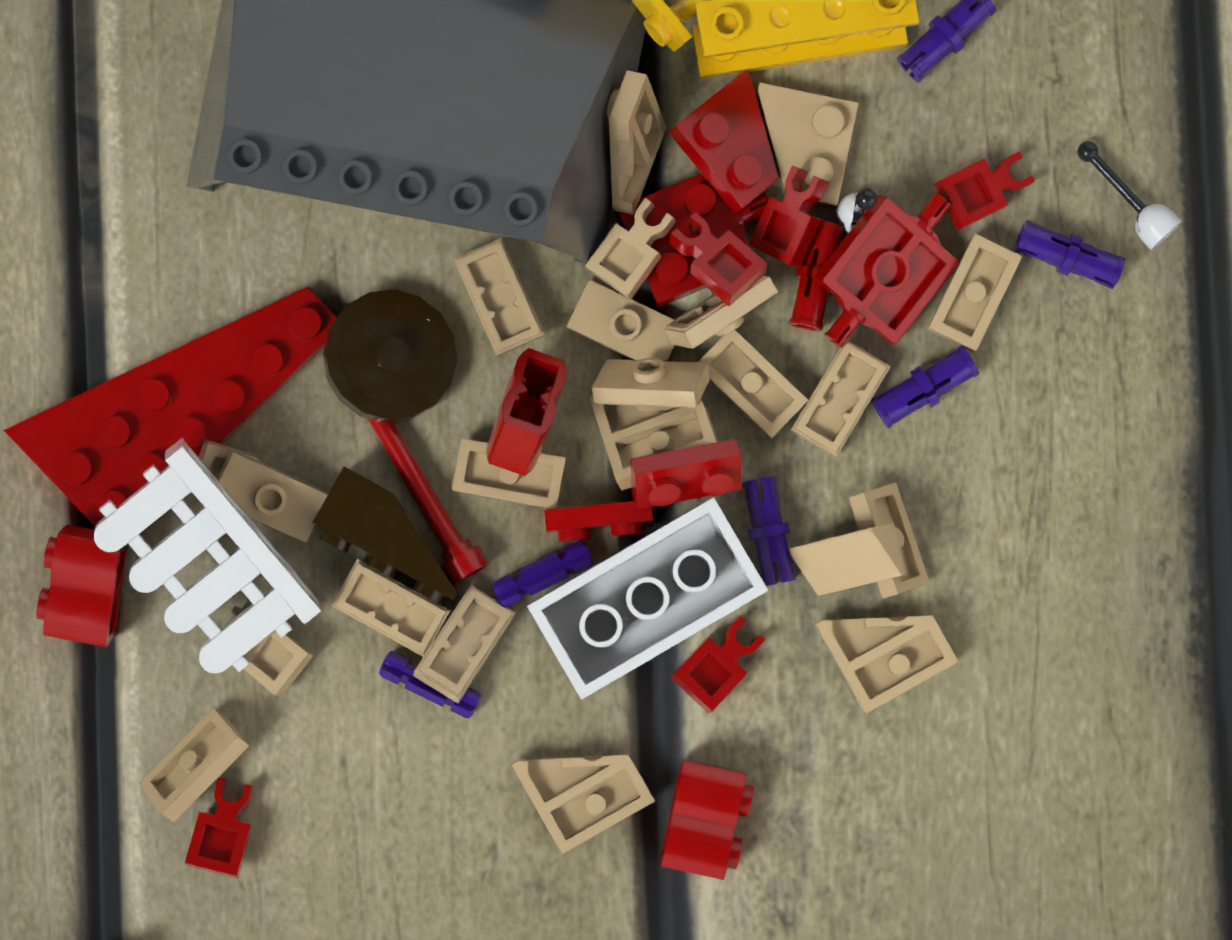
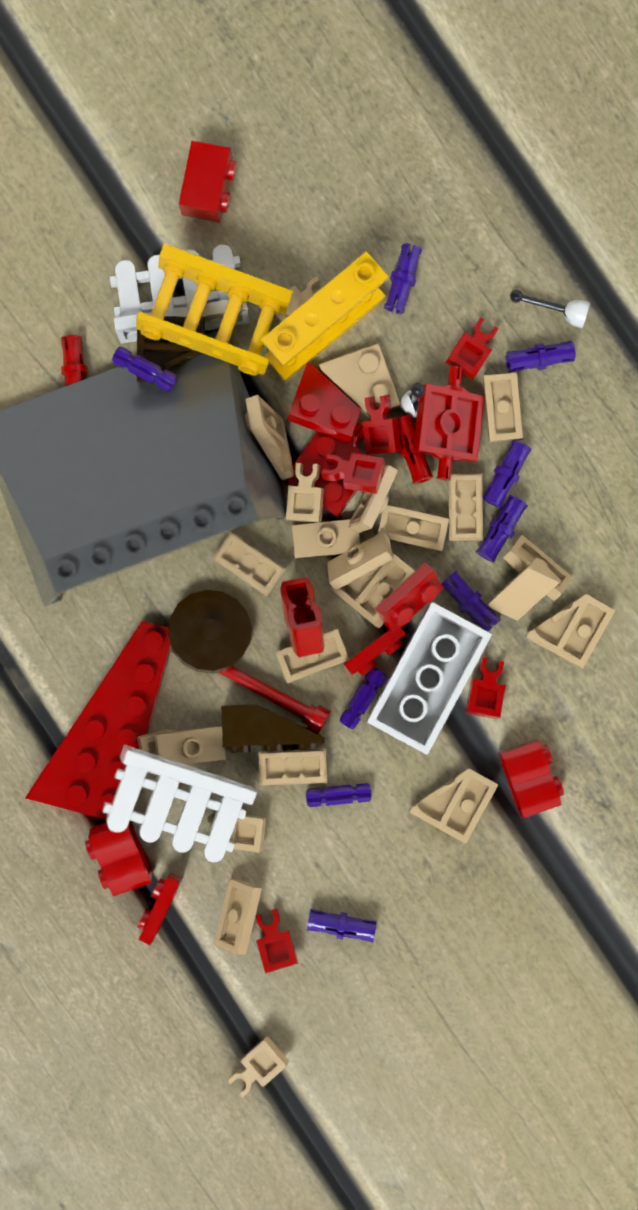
camera: 20 degrees left, 0 degrees up
(113, 675) = (152, 920): none -> red plate
(326, 863) = (341, 925): none -> dark purple pin
(464, 644) = (344, 762): tan plate -> none
(872, 457) = (501, 528): none -> dark purple pin

